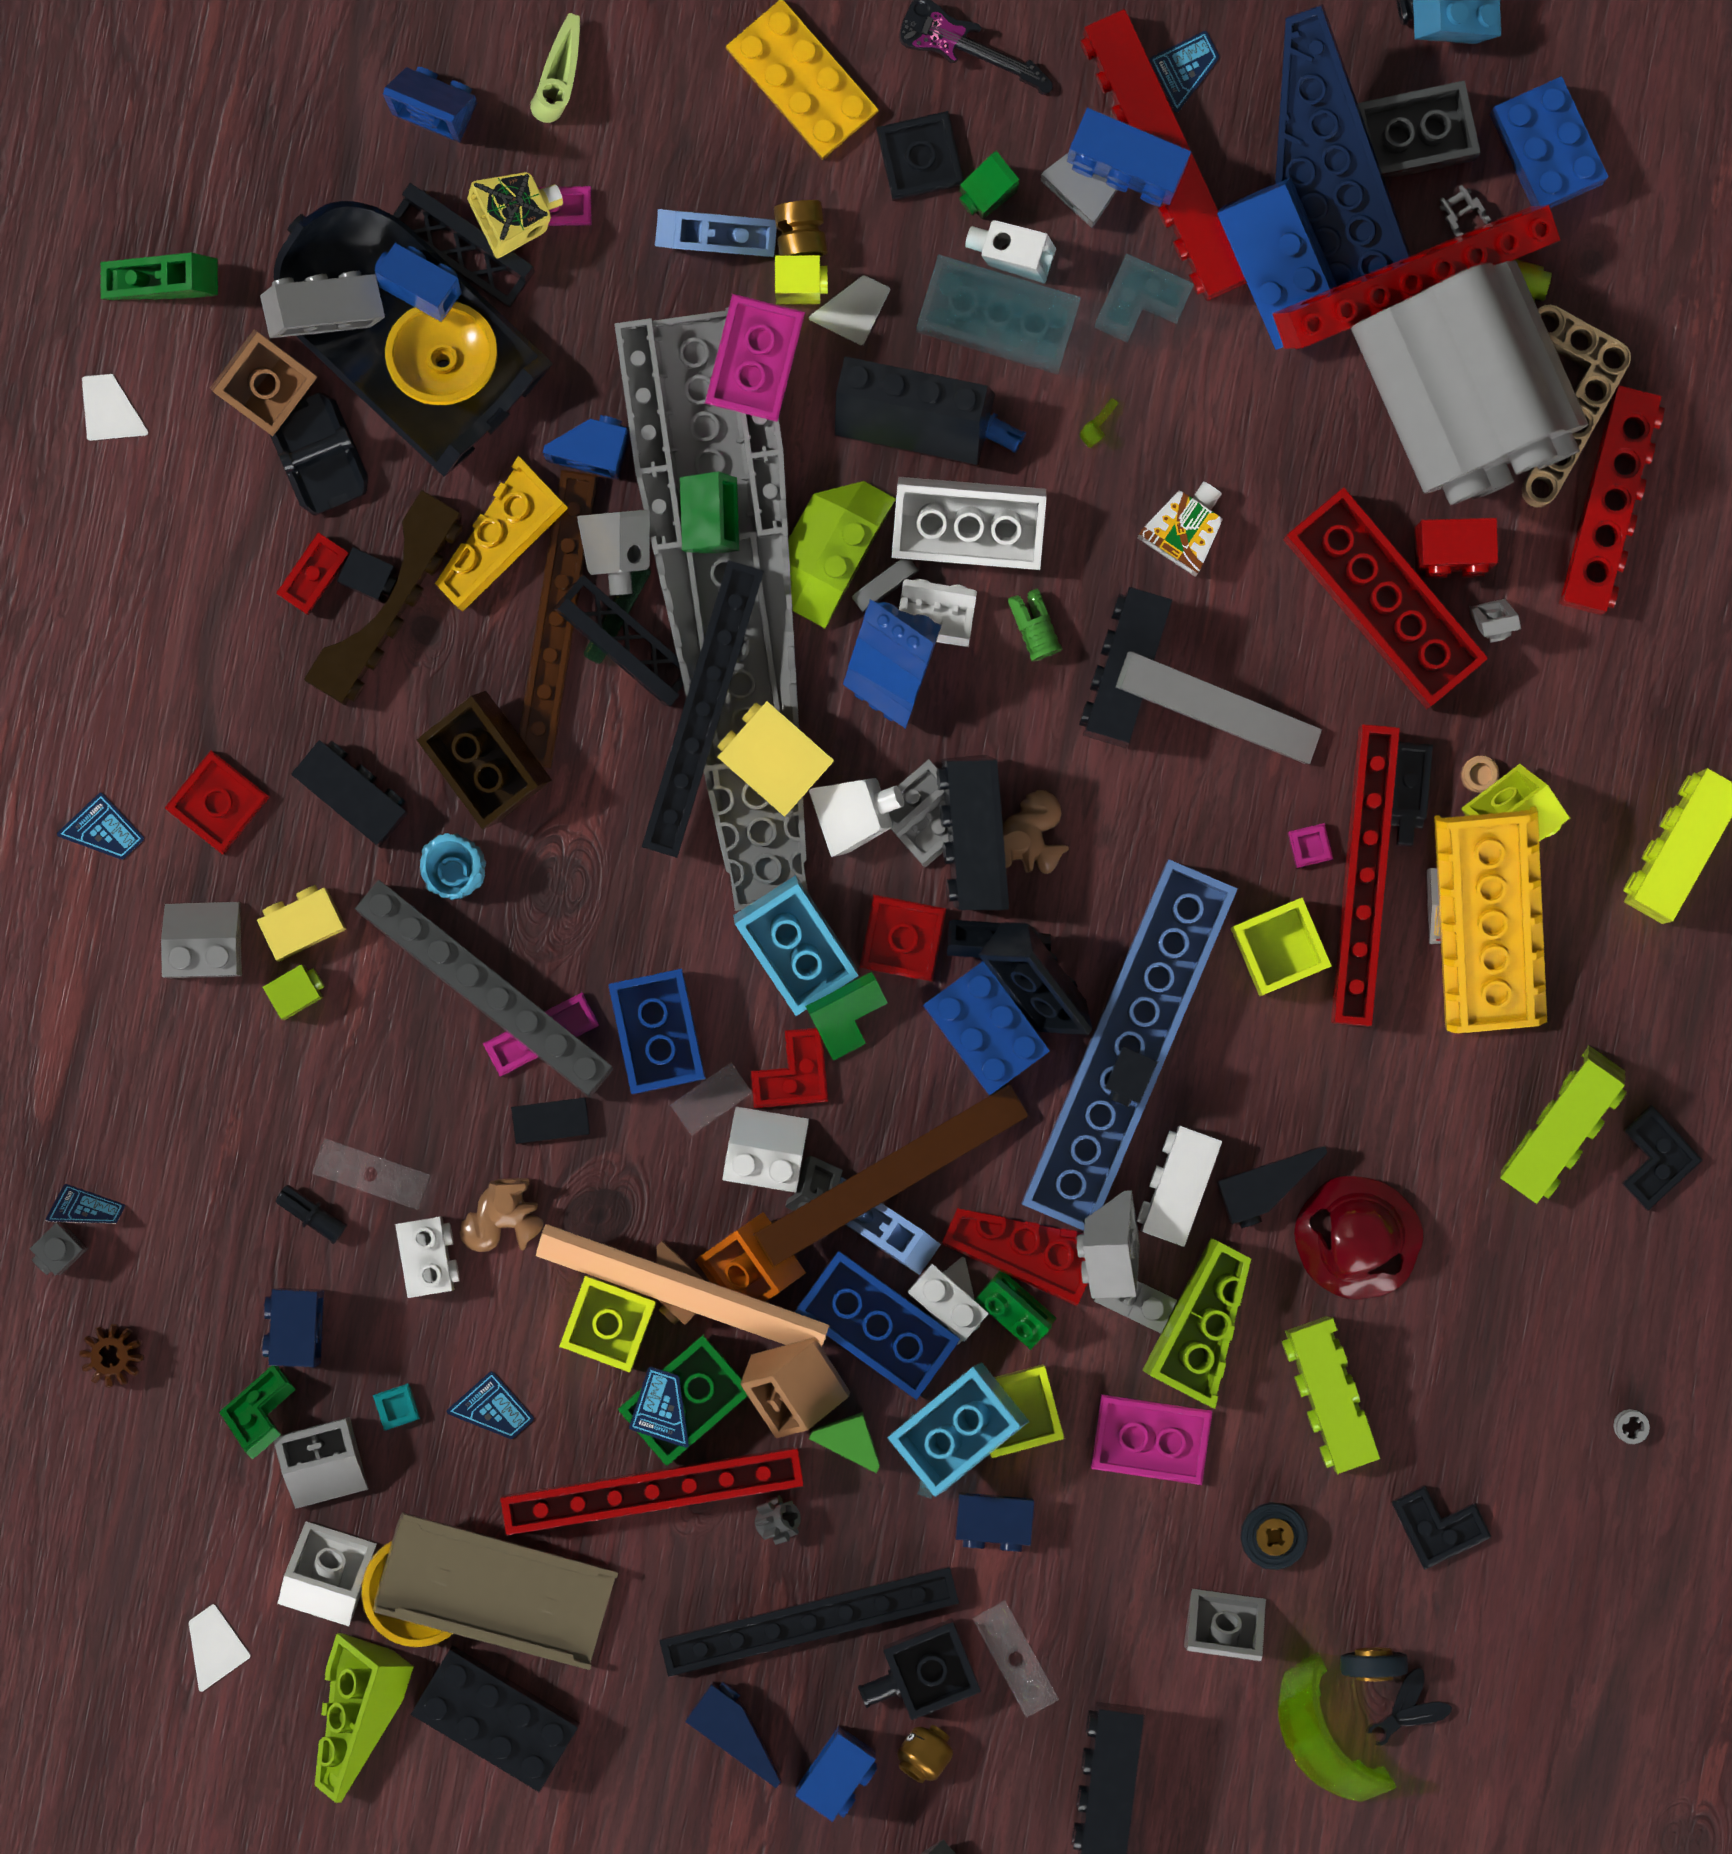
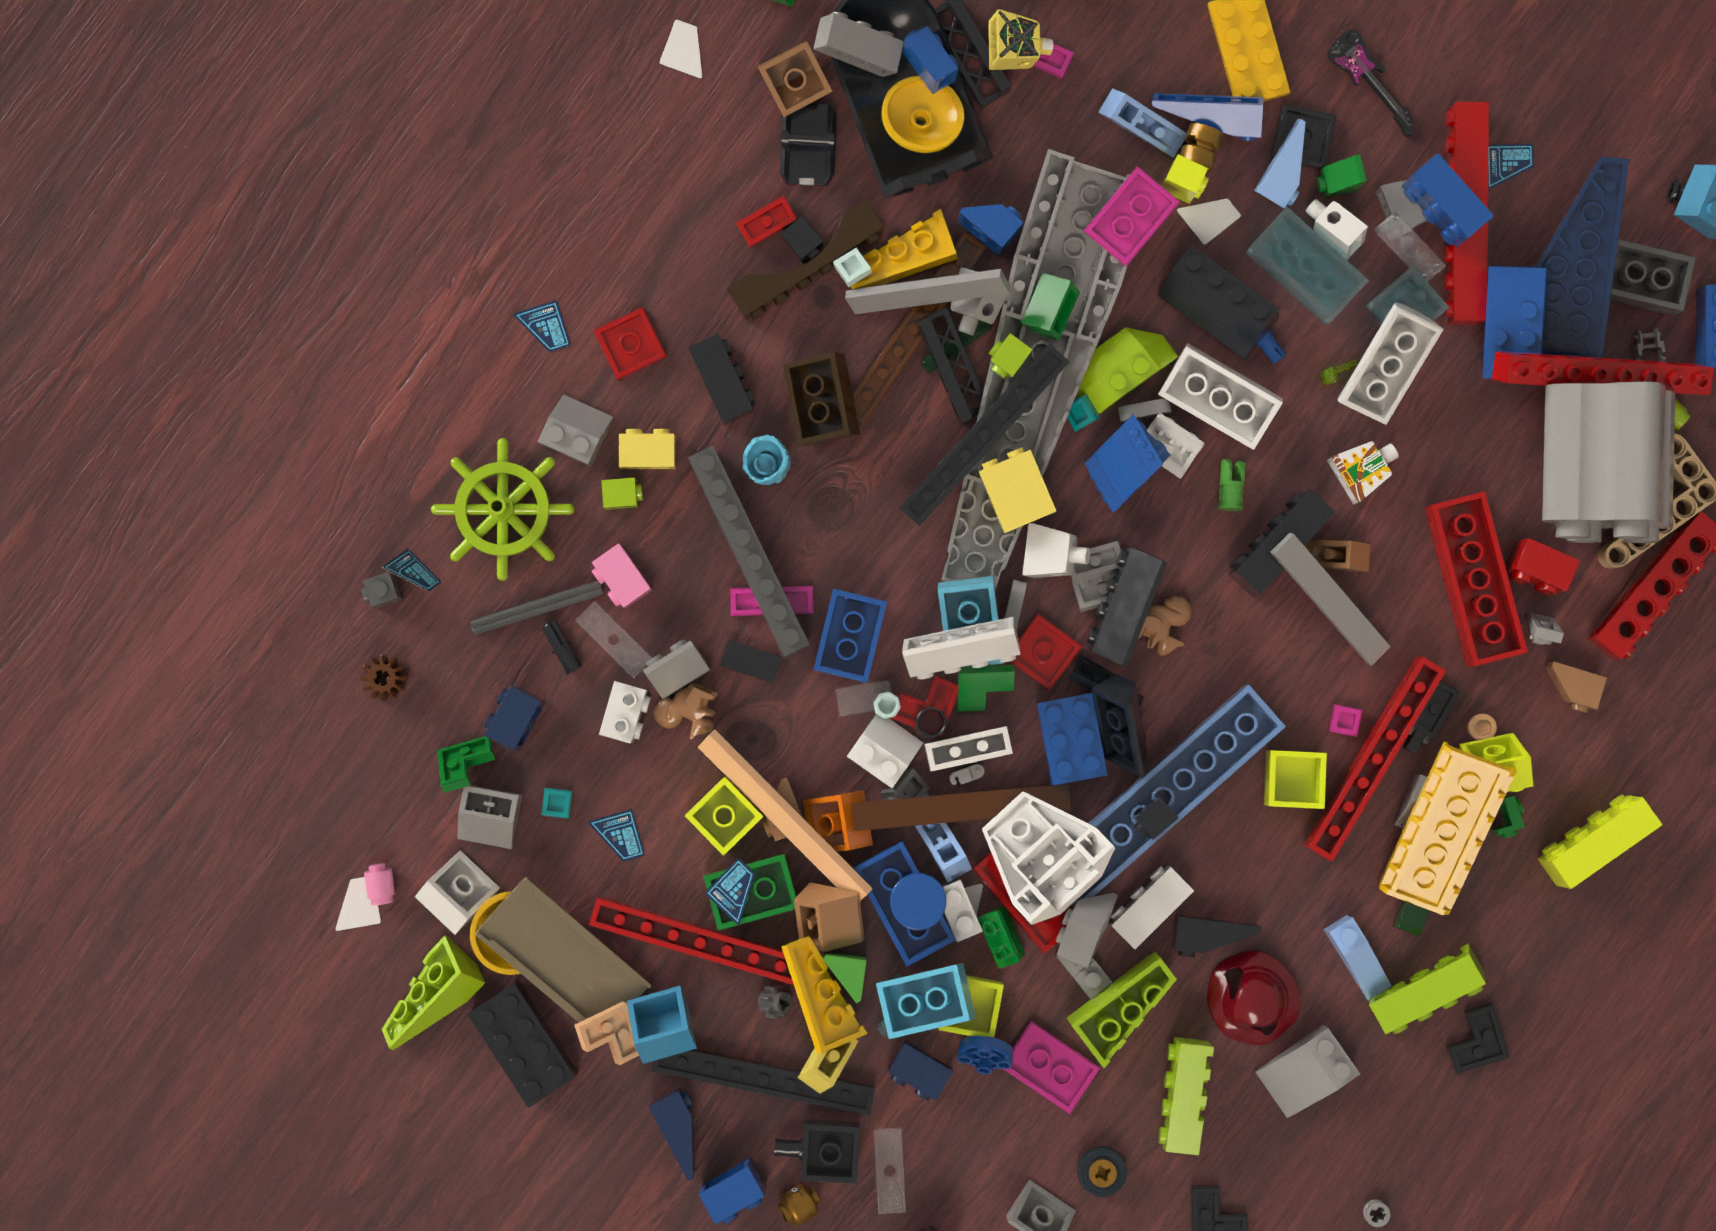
camera: 25 degrees right, 0 degrees up
(158, 1079) = (502, 509): none -> lime piece
(227, 1609) = (379, 884): none -> bright pink brick
(257, 1180) = (536, 607): none -> dark grey axle
(343, 1093) = (621, 576): none -> bright pink brick
(444, 580) = (852, 267): none -> light aqua plate
(464, 1173) = (676, 669): none -> light grey slope
(550, 567) = (928, 291): none -> light grey tile
(593, 1645) = (612, 1027): none -> light nougat plate
(652, 1613) = (661, 1024): none -> dark azure piece
(686, 599) = (1008, 356): none -> lime brick
(741, 1094) = (886, 705): none -> light aqua tile
(797, 981) = (961, 647): none -> white slope
(801, 1071) = (943, 719): none -> black piece
(809, 175) = (1227, 114): none -> slope
(810, 624) = (1082, 413): none -> teal tile
(840, 899) = (1015, 600): none -> light grey beam
(840, 1498) = (825, 1010): none -> yellow wing
(866, 1099) = (968, 748): none -> white brick
(875, 1558) = (824, 1068): none -> light yellow brick
(880, 1131) = (967, 774): none -> light grey piece
(892, 1314) = (918, 901): none -> blue tile
(916, 217) = (1283, 173): none -> light blue slope
(1019, 1185) = (1045, 856): none -> white wedge
(1063, 1460) = (985, 1053): none -> blue tile
(1112, 232) = (1409, 246): none -> clear tile
(1155, 385) = (1390, 363): none -> white brick
(1206, 647) = (1340, 554): none -> medium nougat slope
(1461, 1126) = (1358, 956): none -> light blue slope
(1465, 1295) = (1307, 1071): none -> light grey slope
(1504, 1048) = (1411, 918): none -> dark green slope
(1564, 859) = (1512, 811): none -> green bracket
(1570, 669) = (1577, 686): none -> medium nougat slope

